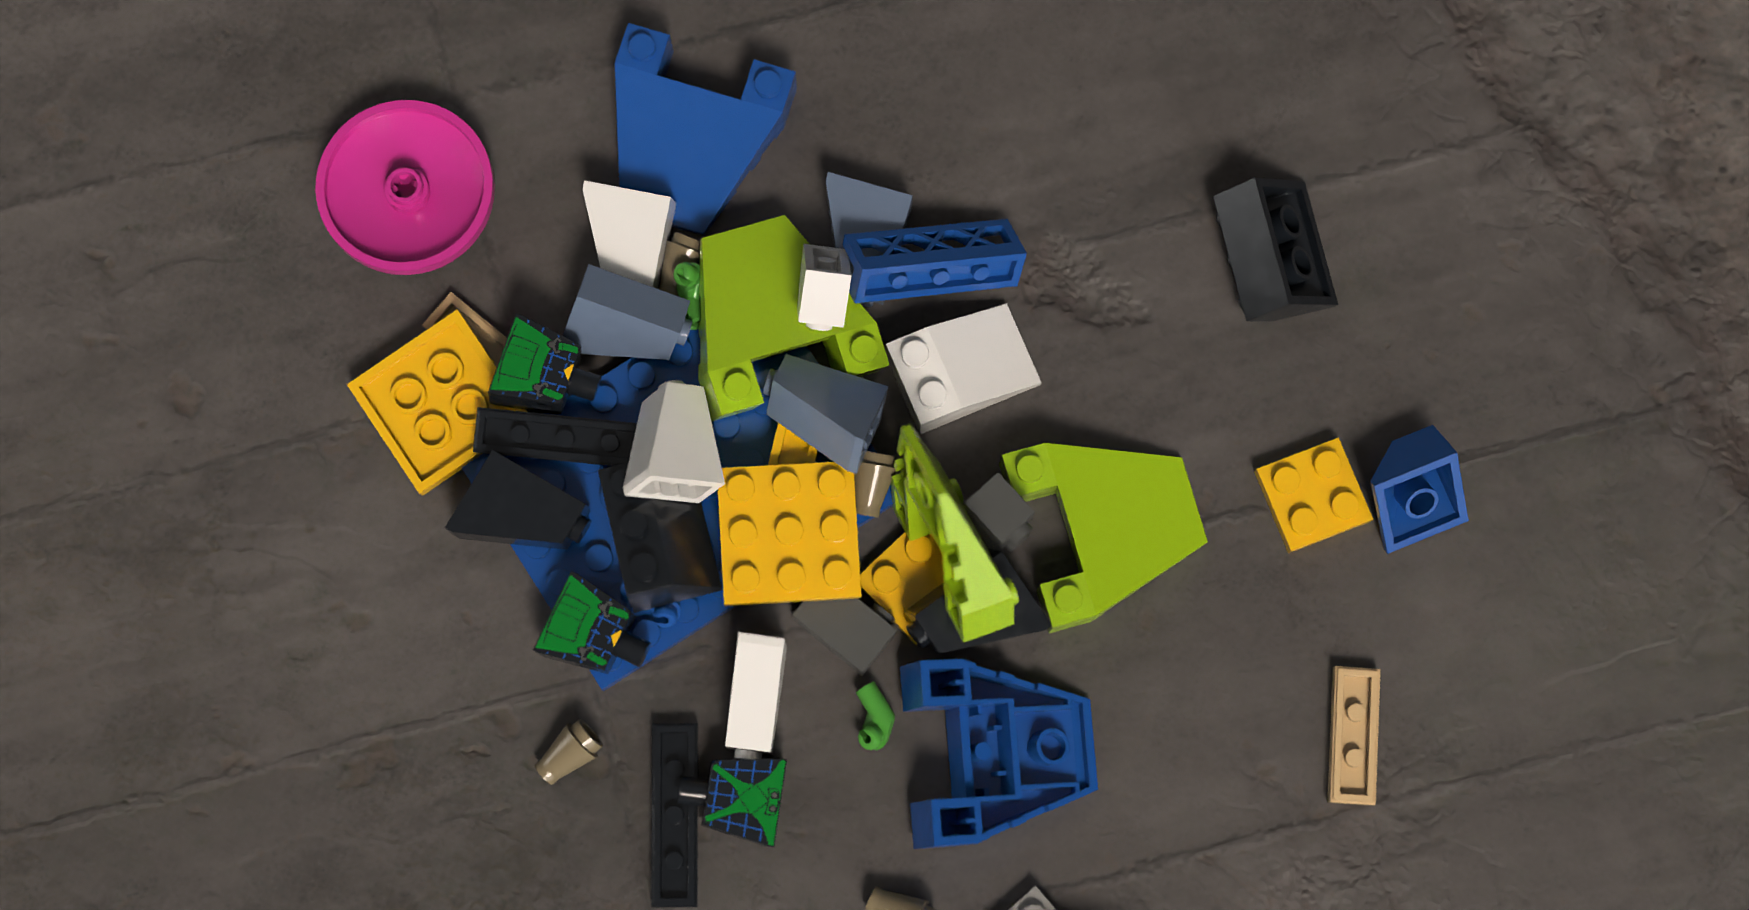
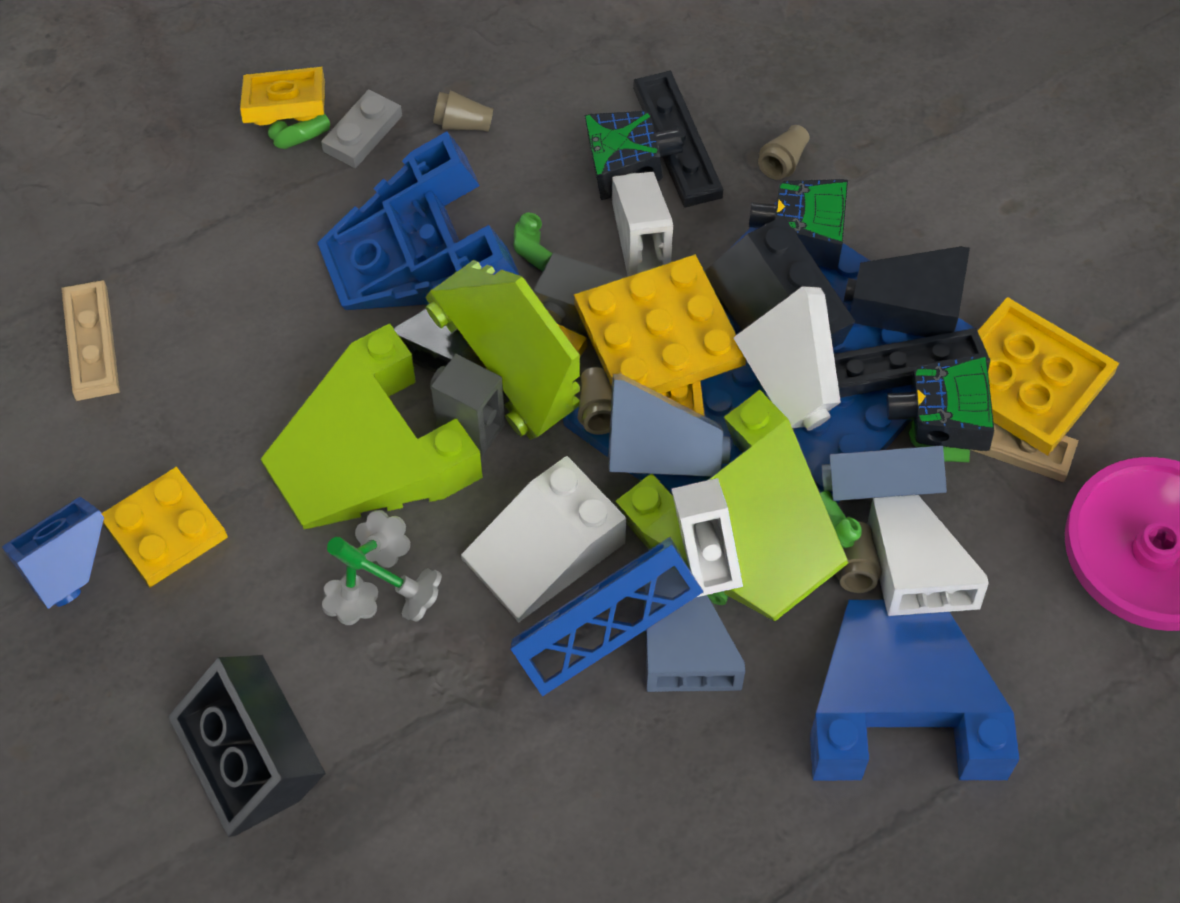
camera: 165 degrees right, 20 degrees down
(1150, 370) = (384, 542): none -> light grey plant

